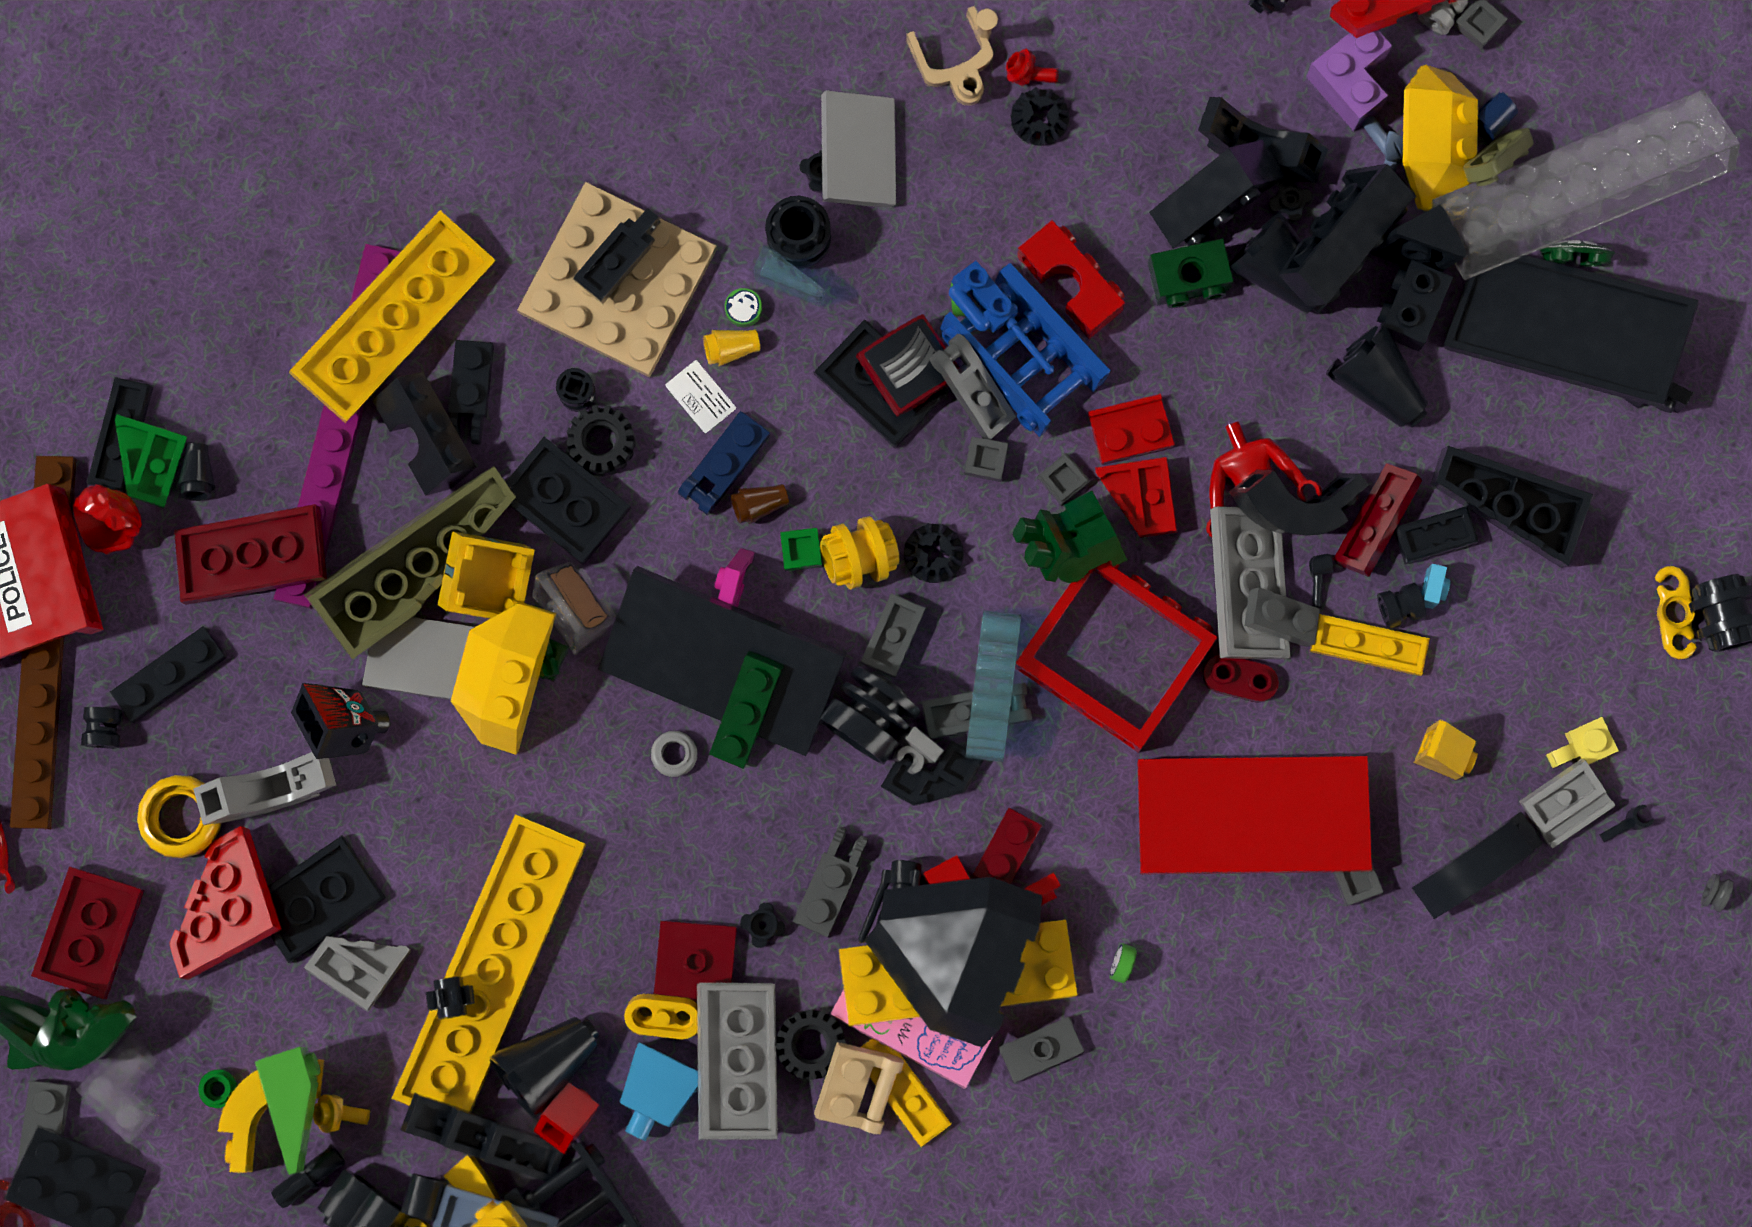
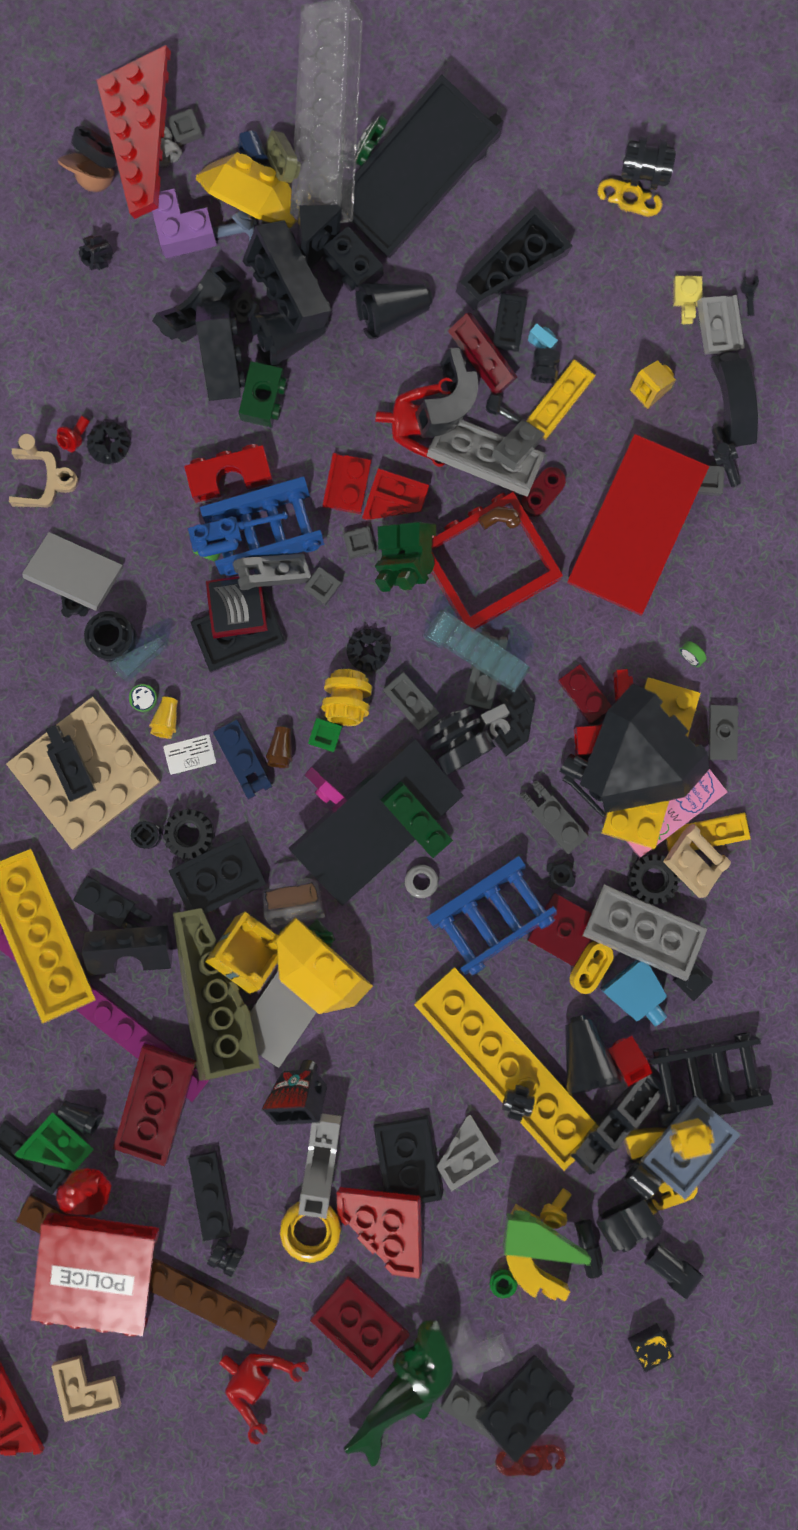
camera: 70 degrees left, 5 degrees up
(671, 822) = (491, 889): none -> blue fence
(704, 1157) = (696, 983): none -> black plate
(1178, 633) = (500, 514): none -> reddish brown arm
(1400, 886) = (725, 455): none -> black piece

